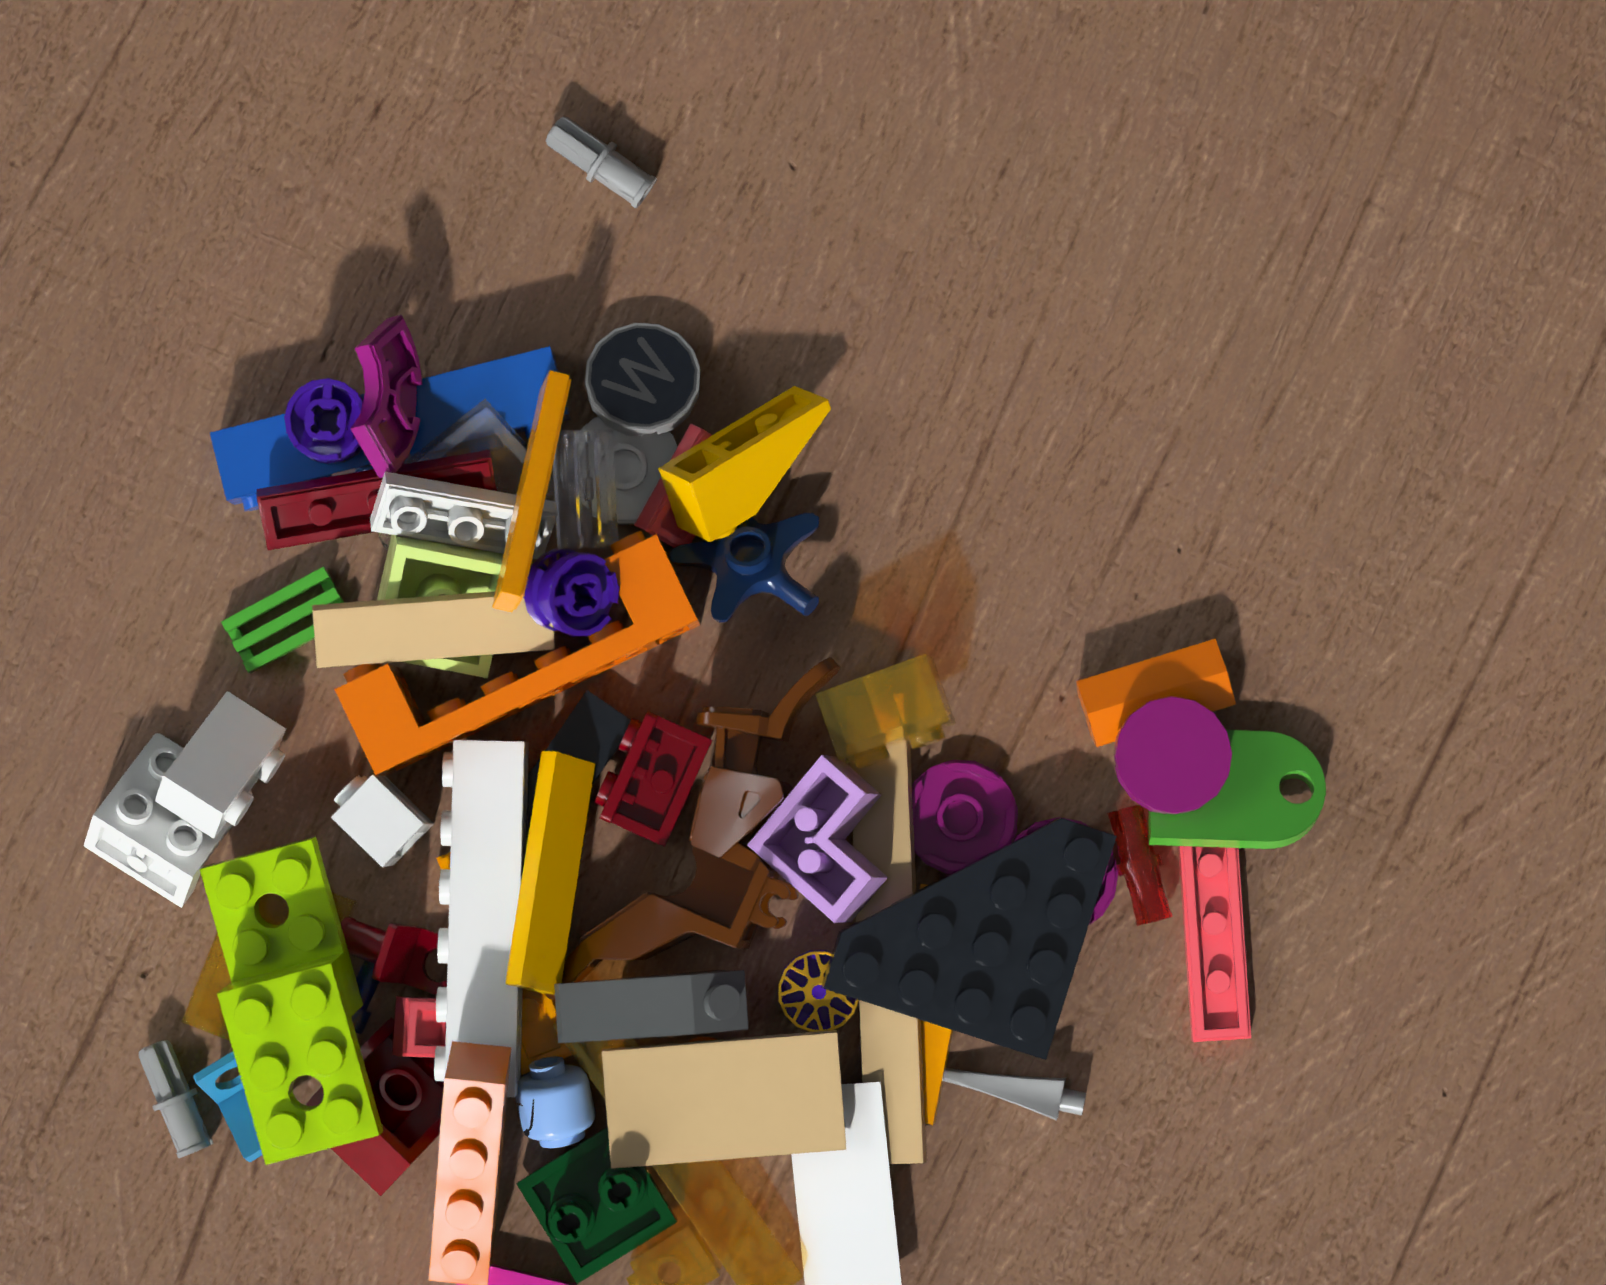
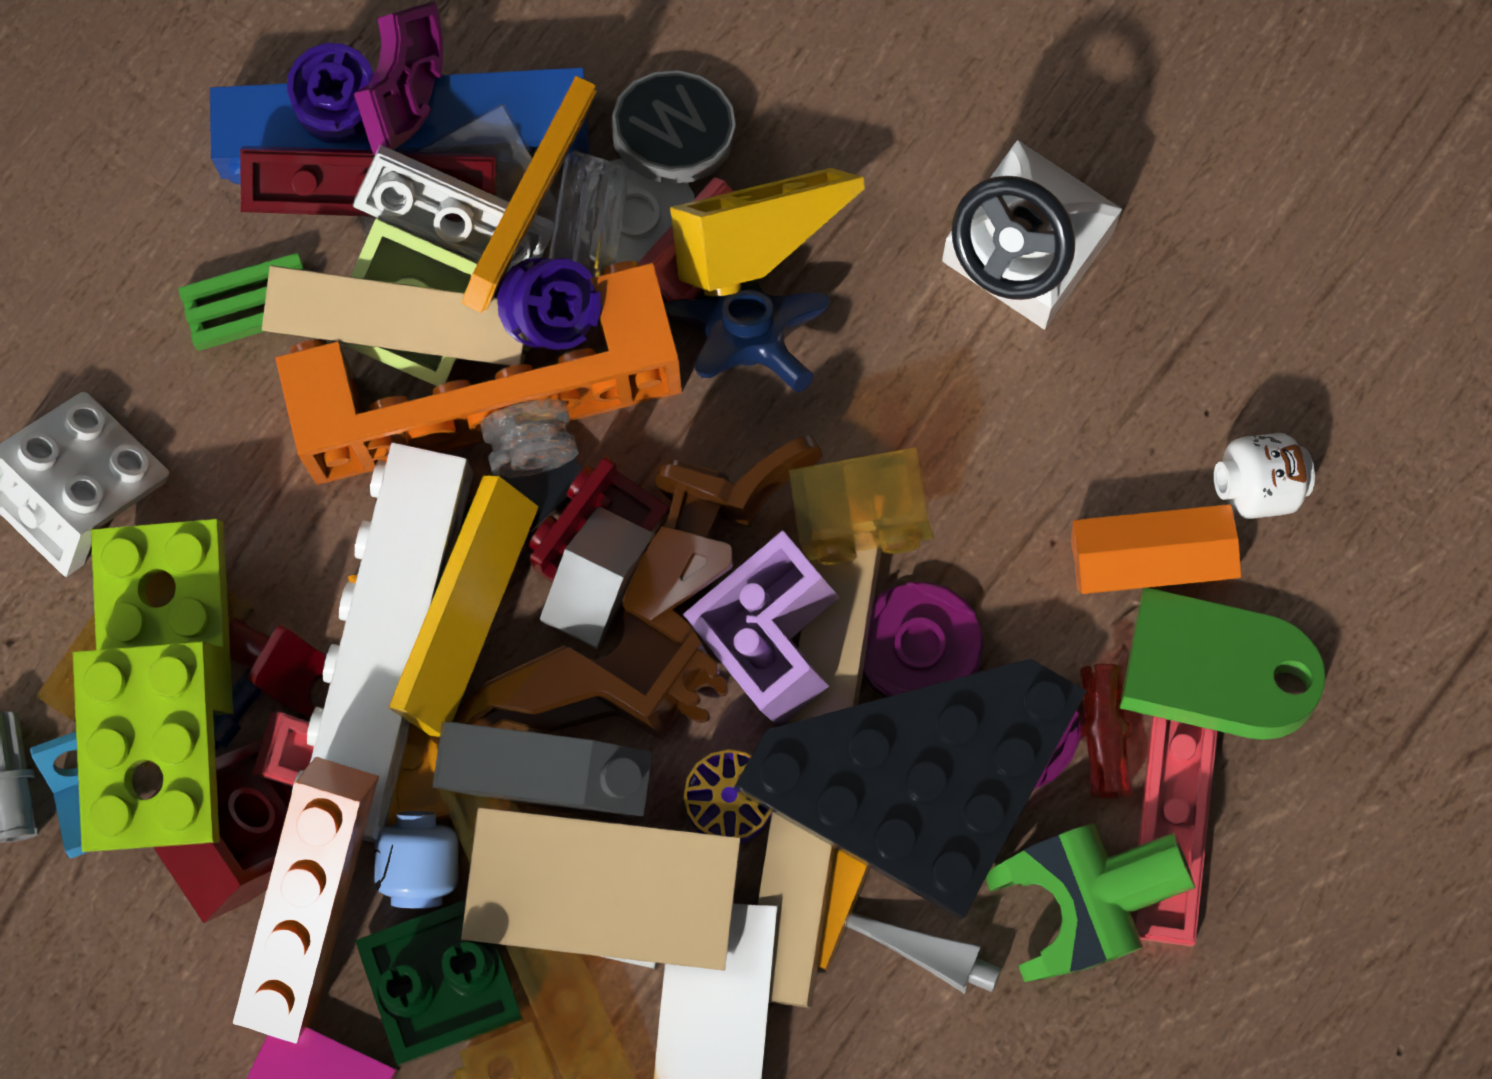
camera: 15 degrees right, 10 degrees down
(221, 765) = (140, 428): white piece -> none
(380, 818) = (296, 514): white piece -> none
(578, 714) = (529, 438): none -> clear wheel
(661, 818) = (594, 576): none -> light grey slope
(988, 426) = (1029, 233): none -> piece
(1155, 1015) = (1094, 894): none -> bright green connector
(1172, 755) = (1163, 613): magenta tile -> none
(1241, 605) = (1264, 475): none -> white head

